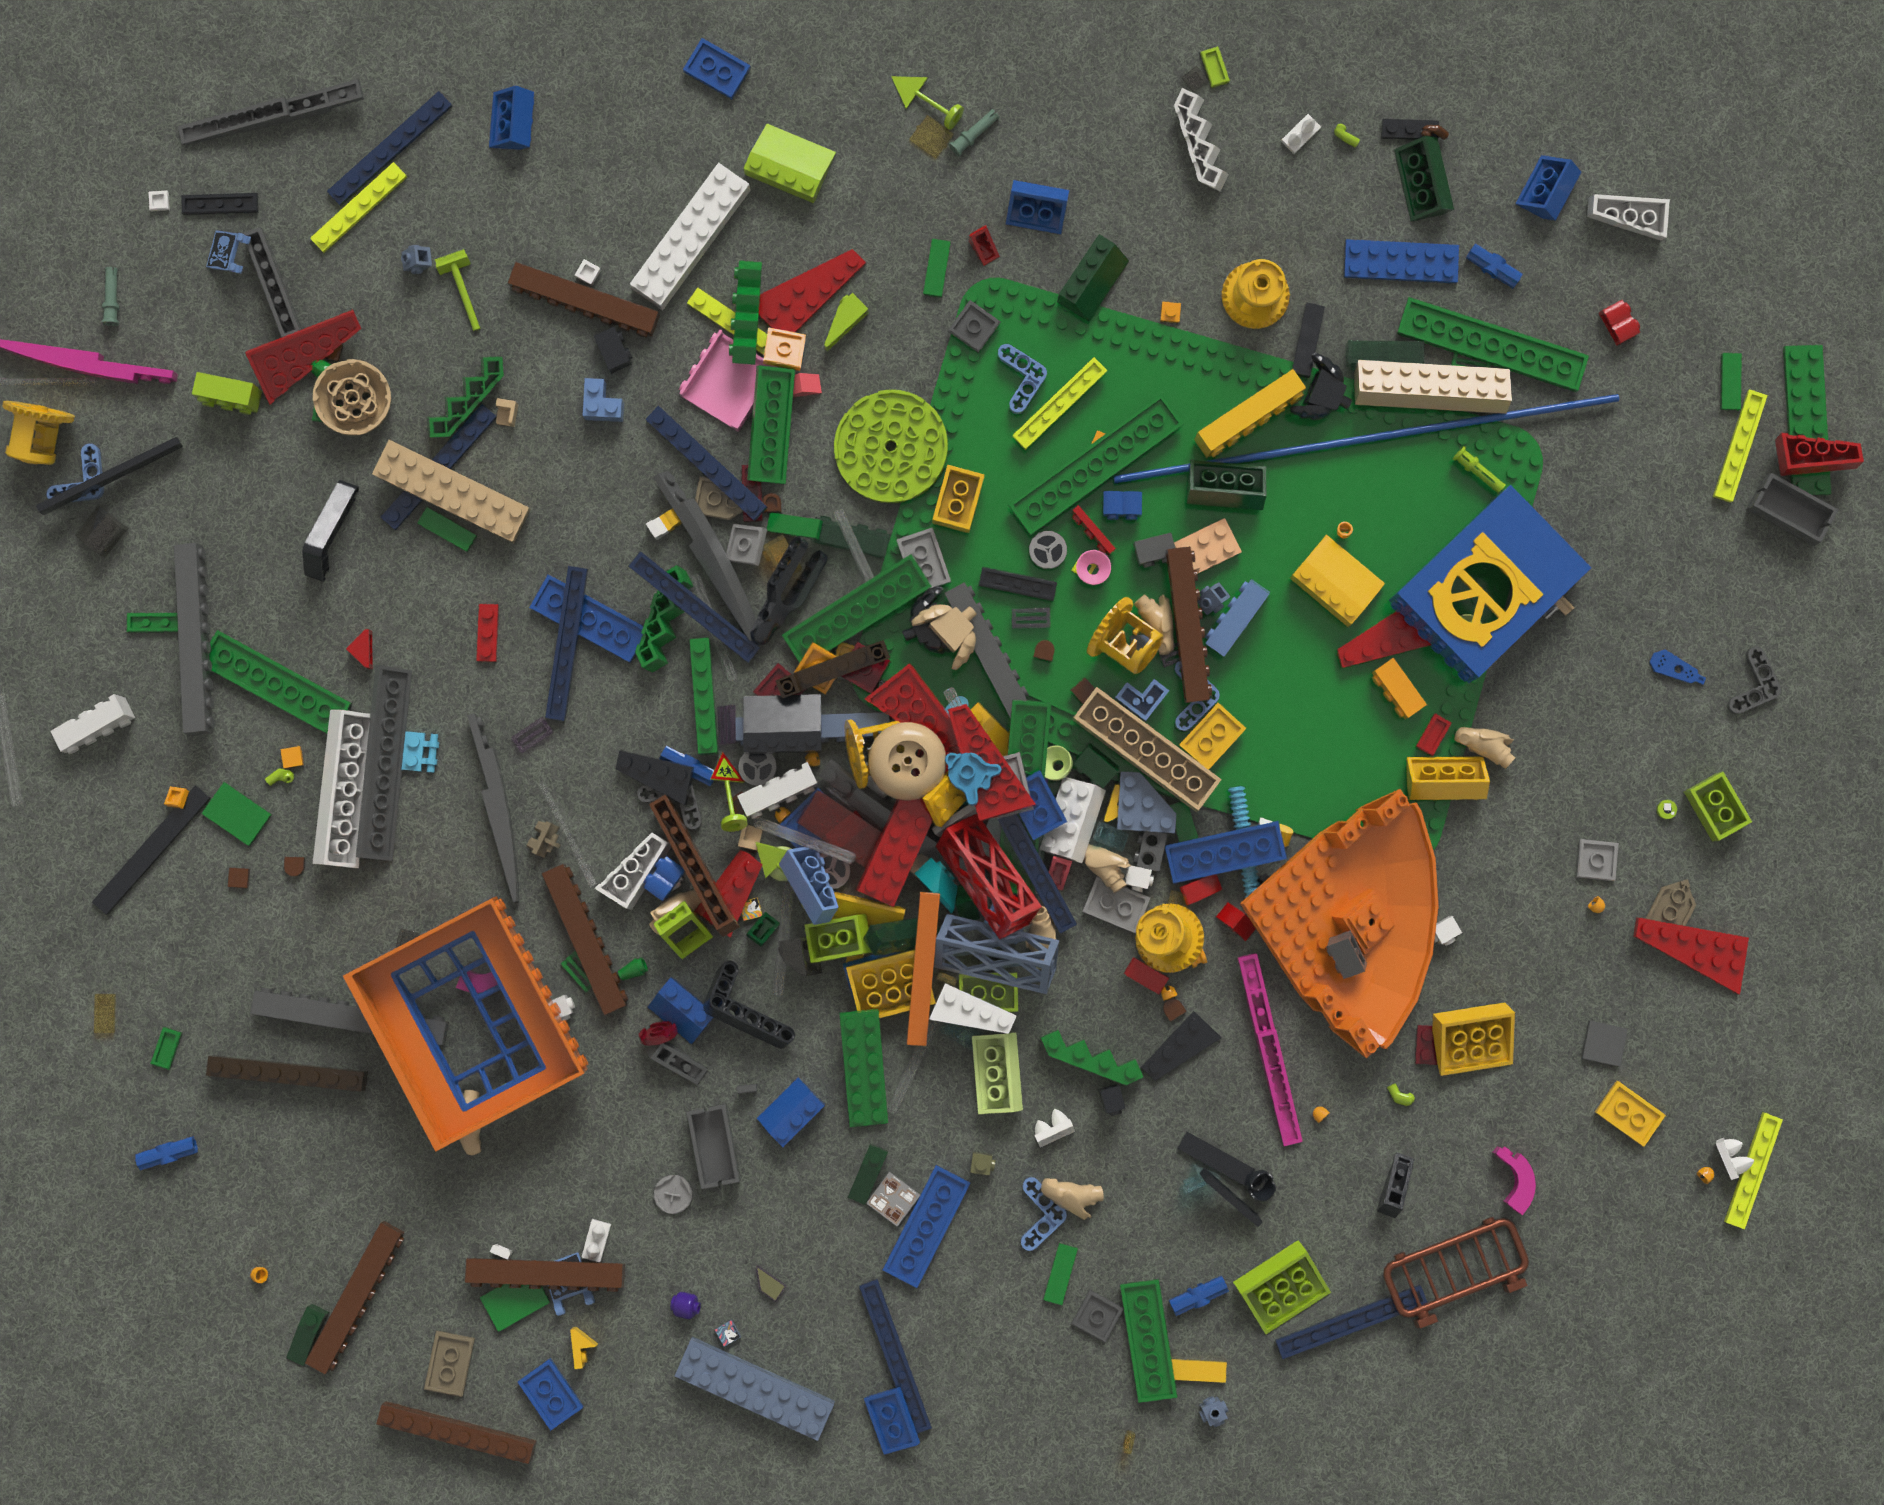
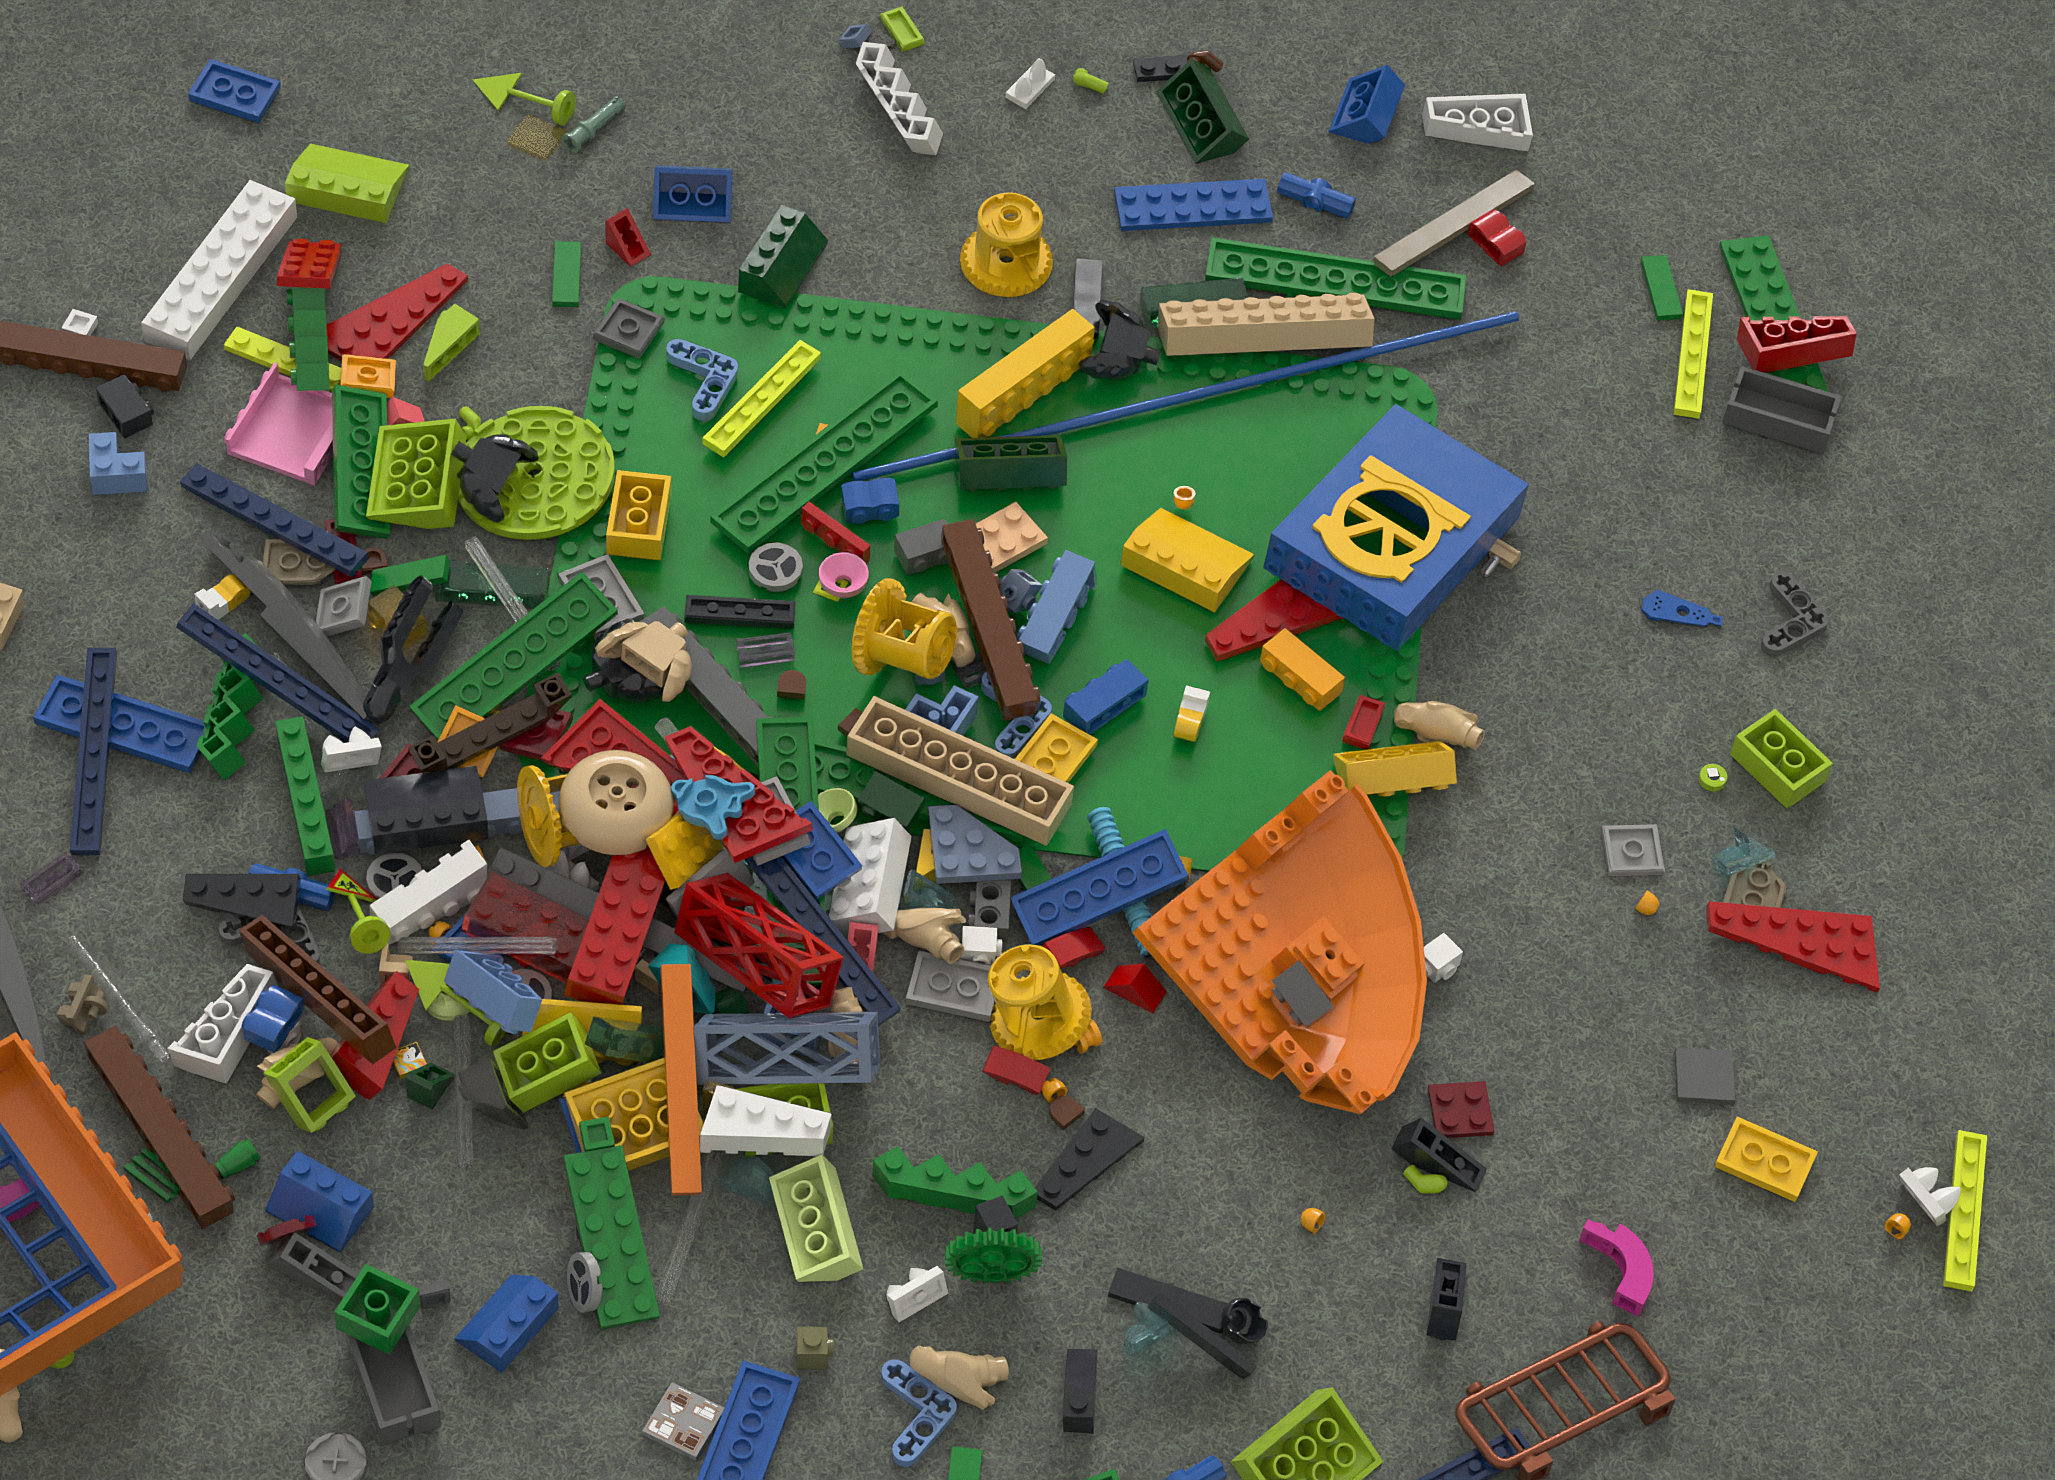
camera: 10 degrees left, 30 degrees down
(707, 1113) = (377, 1309): none -> green brick
(743, 1012) = (418, 1189): black beam -> none
(745, 667) = (356, 753): none -> white tile
(753, 246) = (309, 264): none -> red plate
(808, 442) = (416, 475): none -> lime slope
(842, 1098) = (582, 1282): none -> light grey tile
(854, 394) = (472, 419): none -> lime arm
(857, 451) = (487, 469): none -> black torso
(863, 1002) = (596, 1134): none -> green plate
(867, 1174) = (639, 1386): dark green slope -> none
(1106, 1125) = (993, 1256): none -> green gear
(1147, 1214) = (1080, 1391): none -> black slope
(1170, 312) = (895, 289): light orange plate -> none
(1178, 72) = (855, 36): none -> sand blue tile
(1257, 693) = (1105, 697): none -> blue brick
(1269, 1049) = (1218, 1141): dark pink slope -> none
(1314, 715) = (1191, 713): none -> leg
(1412, 1081) = (1436, 1154): none -> black slope
(1469, 466) = (1341, 406): lime pin -> none
(1474, 1038) = (1514, 1086): yellow slope -> none
(1590, 305) = (1452, 223): none -> tile
(1673, 877) = (1745, 854): none -> clear light blue slope

